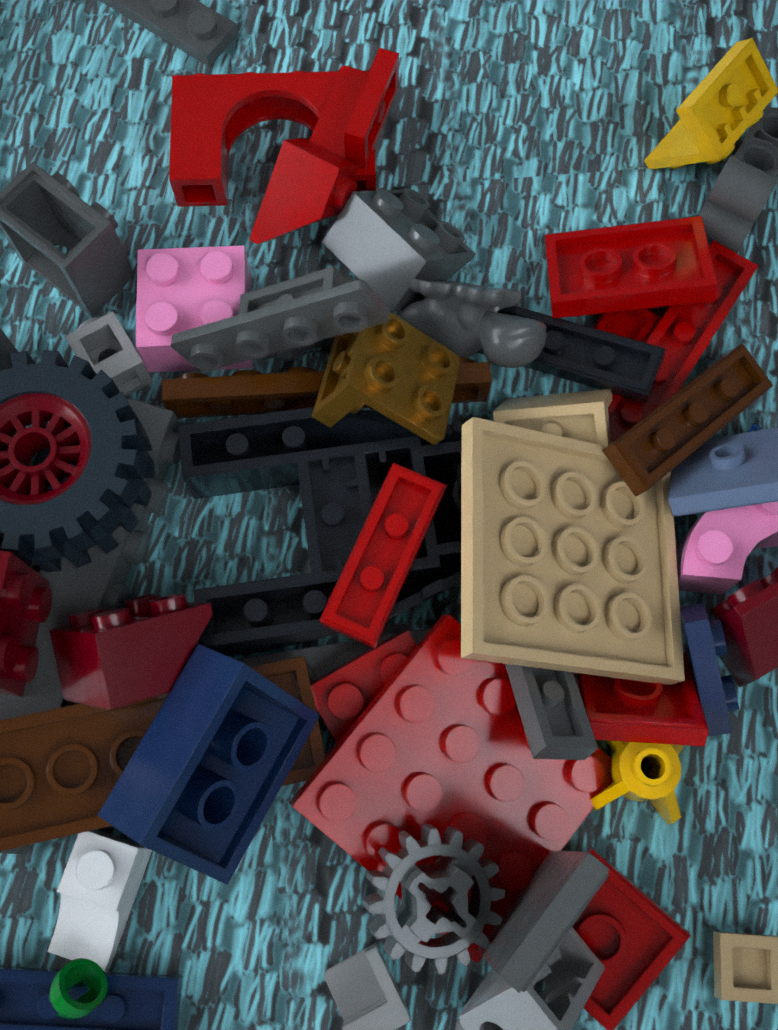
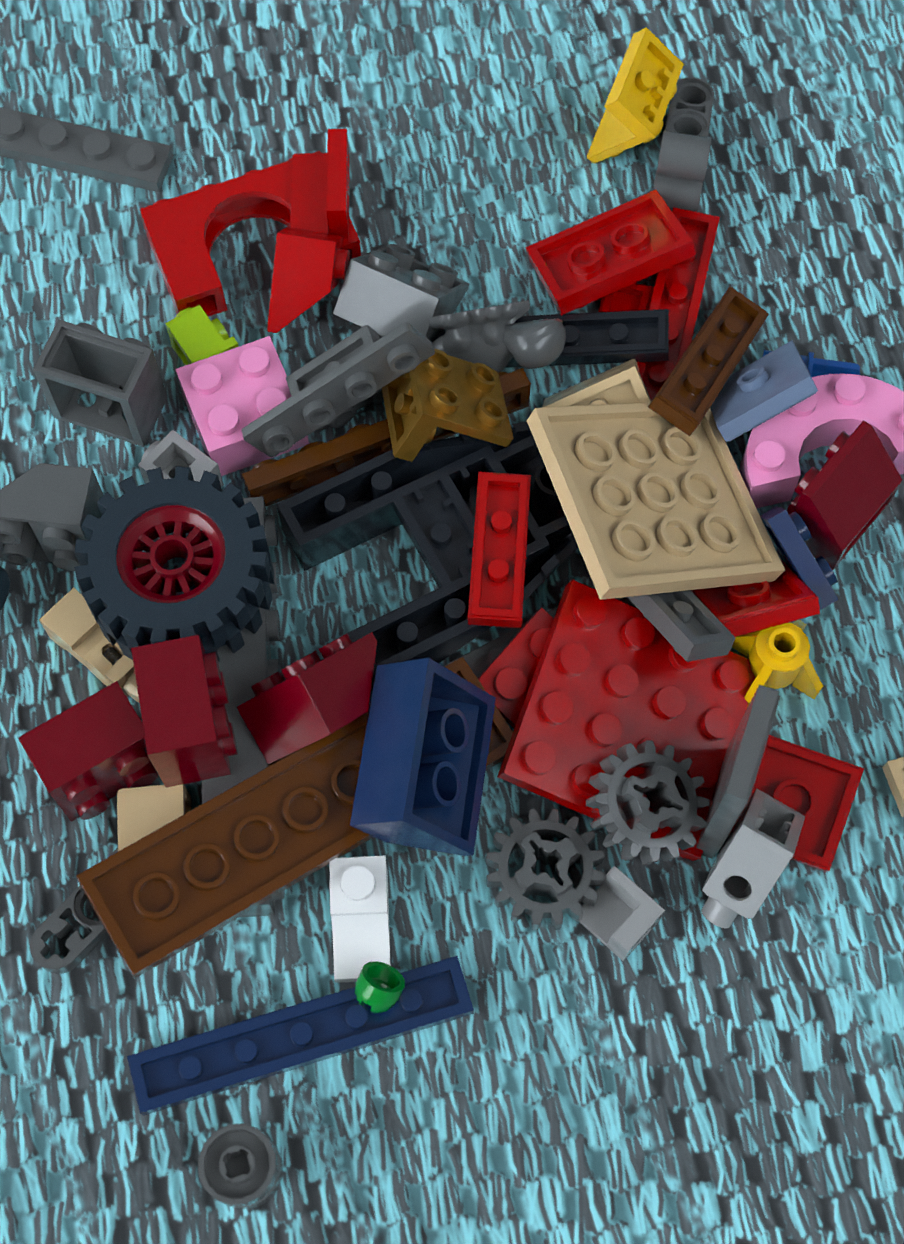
camera: 20 degrees left, 5 degrees down
(180, 223) = (198, 337): none -> lime brick
(280, 922) = (525, 882): none -> dark grey gear

